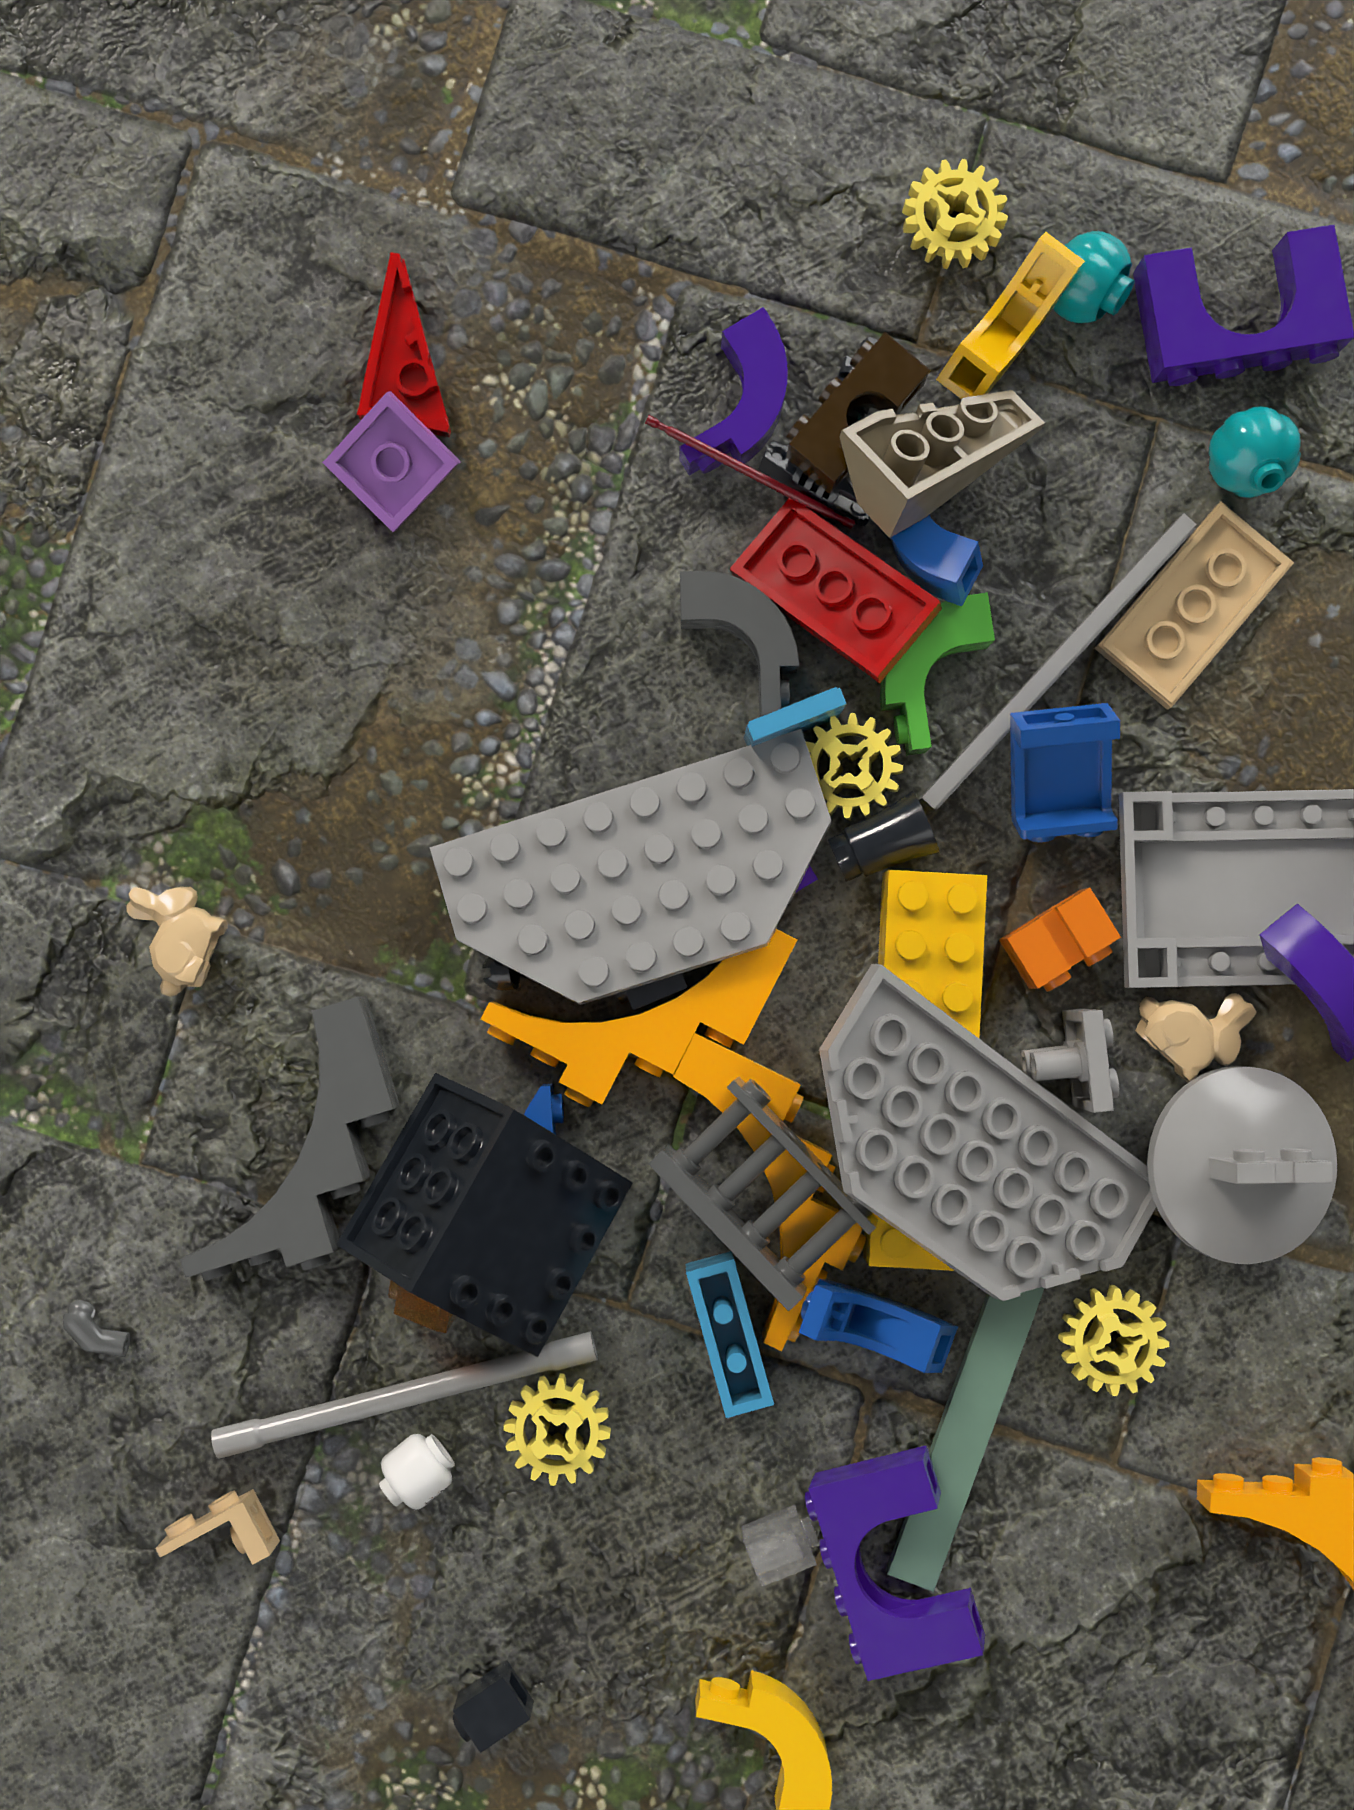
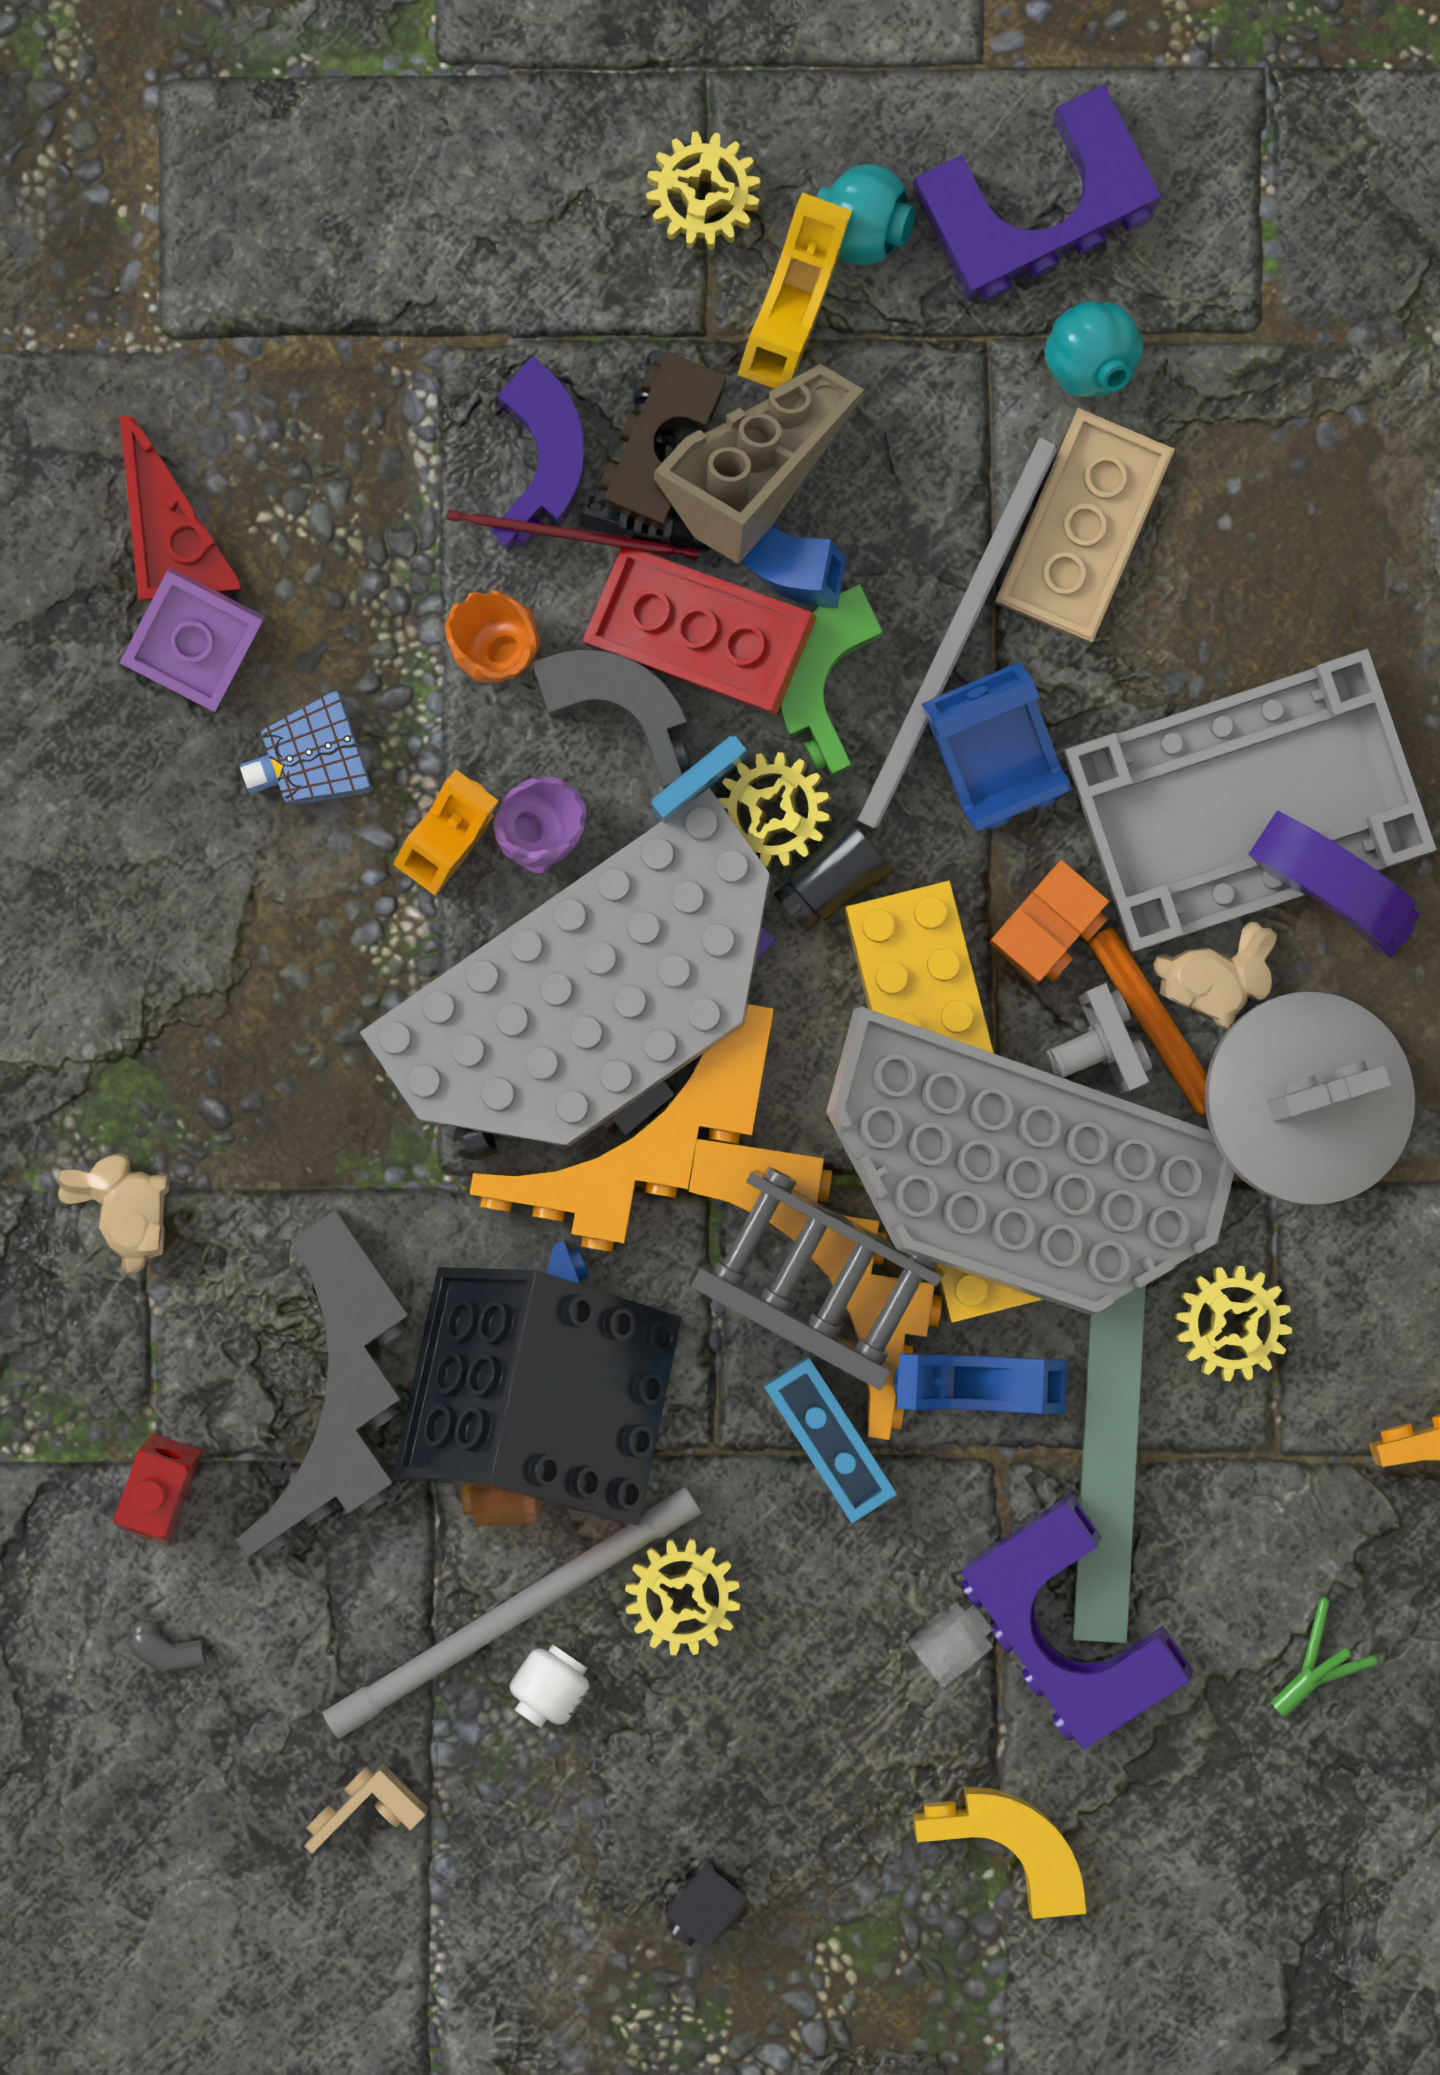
camera: 20 degrees left, 0 degrees up
(126, 1193) = (157, 1489): none -> red torso
(463, 595) = (310, 756): none -> medium blue torso
(560, 698) = (446, 832): none -> light orange brick
(643, 714) = (540, 823): none -> medium lavender hair
(652, 539) = (492, 636): none -> orange hair
(1083, 1674) = (1329, 1670): none -> bright green plant
(1125, 1051) = (1151, 1016): none -> orange axle

